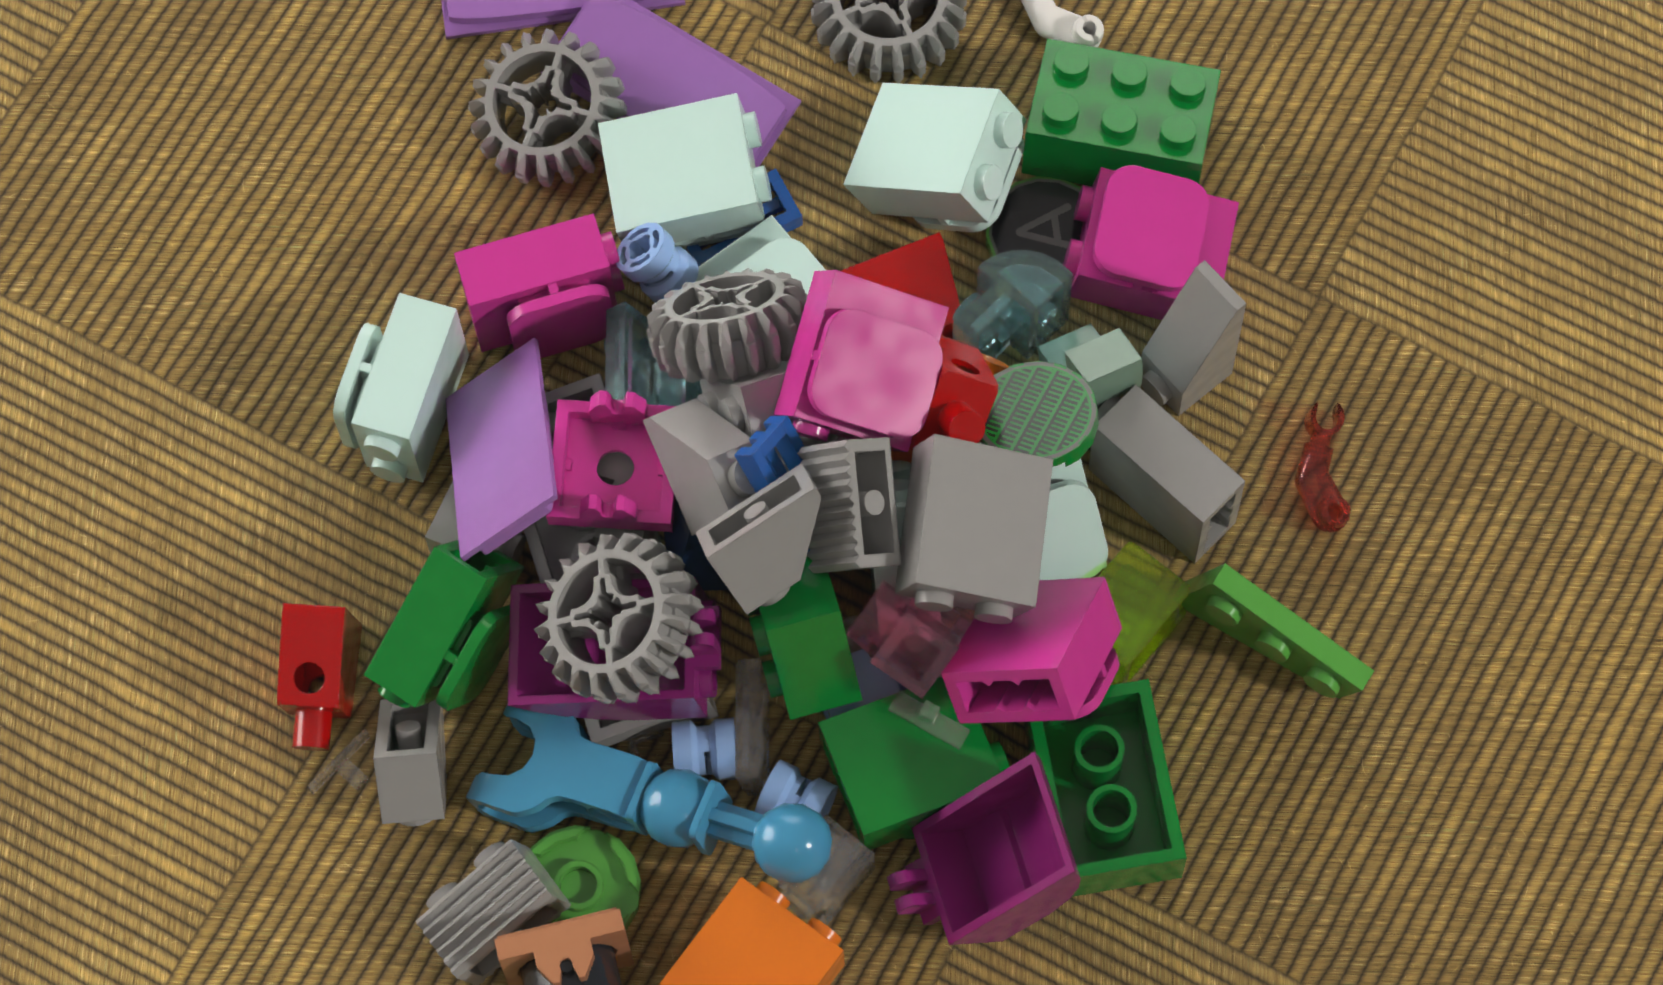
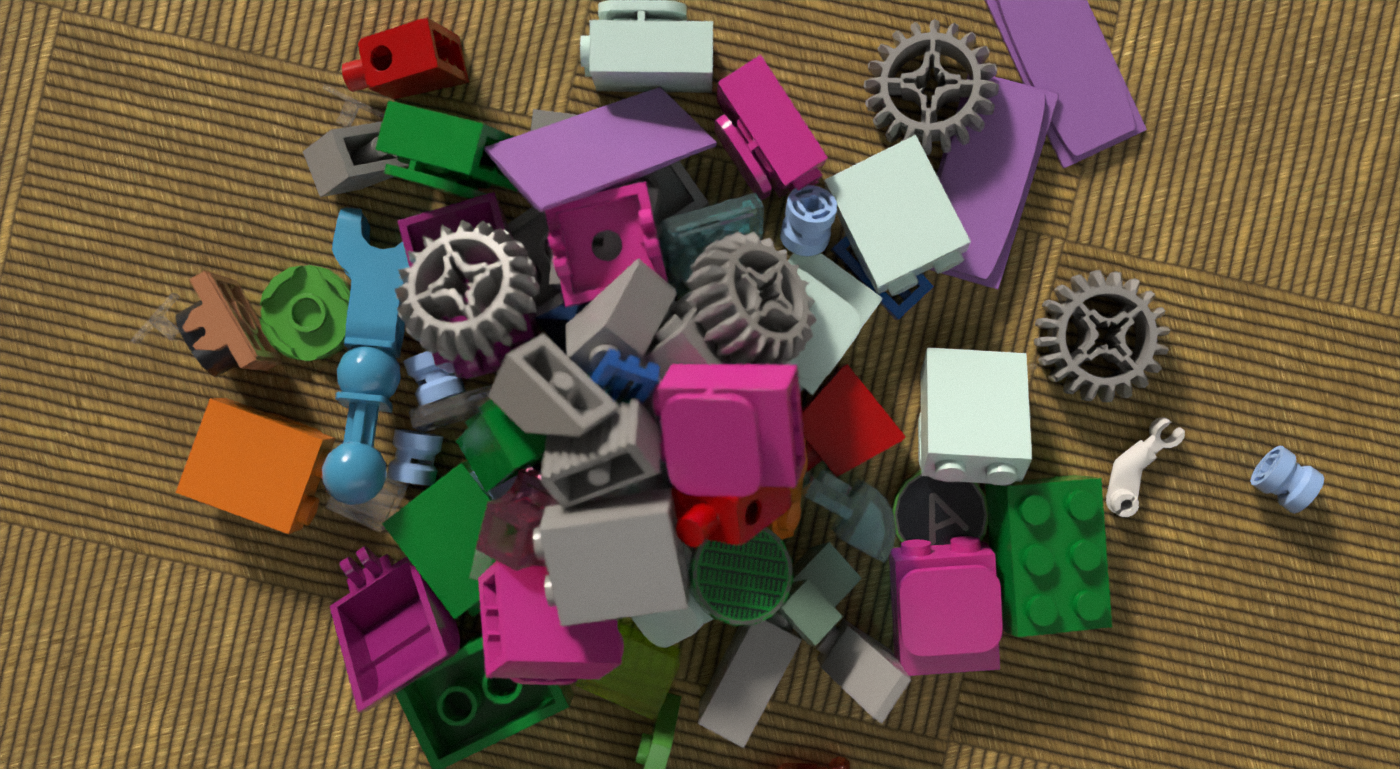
camera: 70 degrees right, 20 degrees up
(498, 898) = (256, 257): light grey brick -> none

